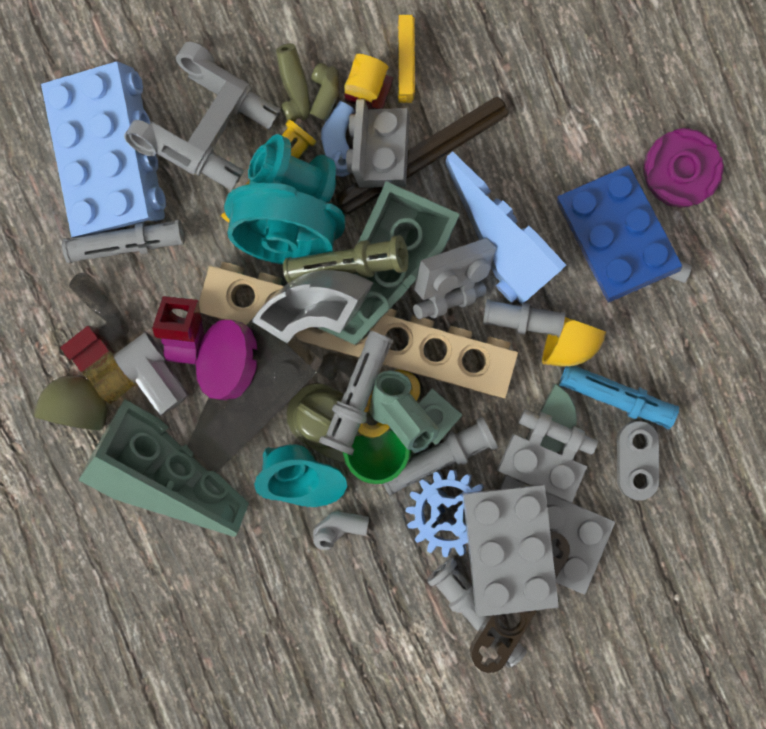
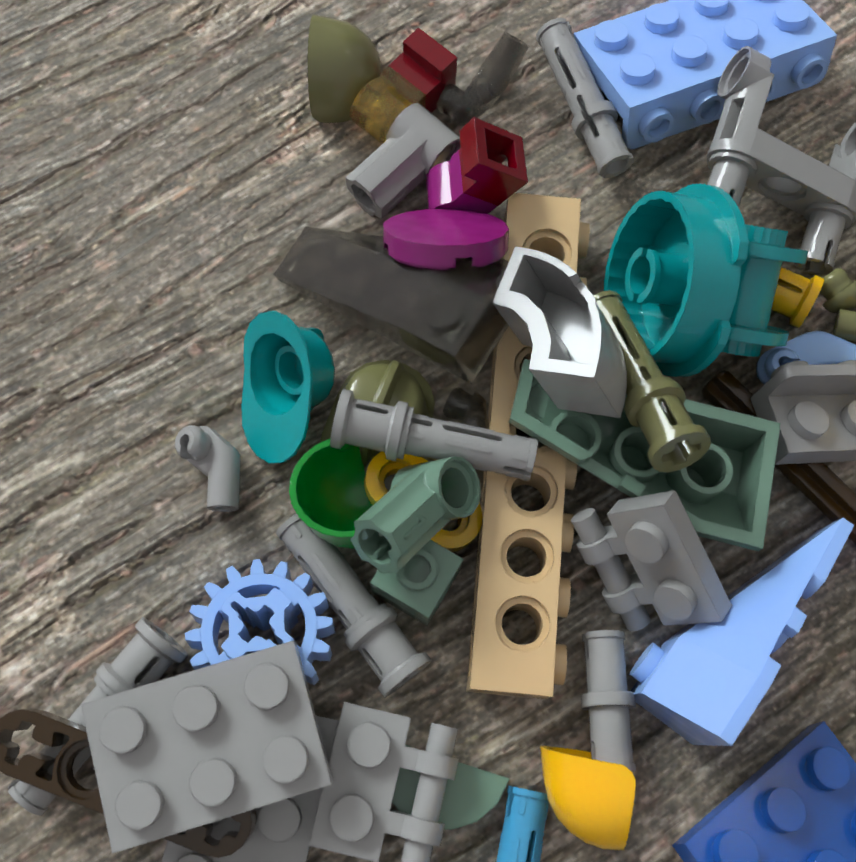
camera: 80 degrees right, 15 degrees down
(152, 471) = (262, 184): sand green wedge -> none

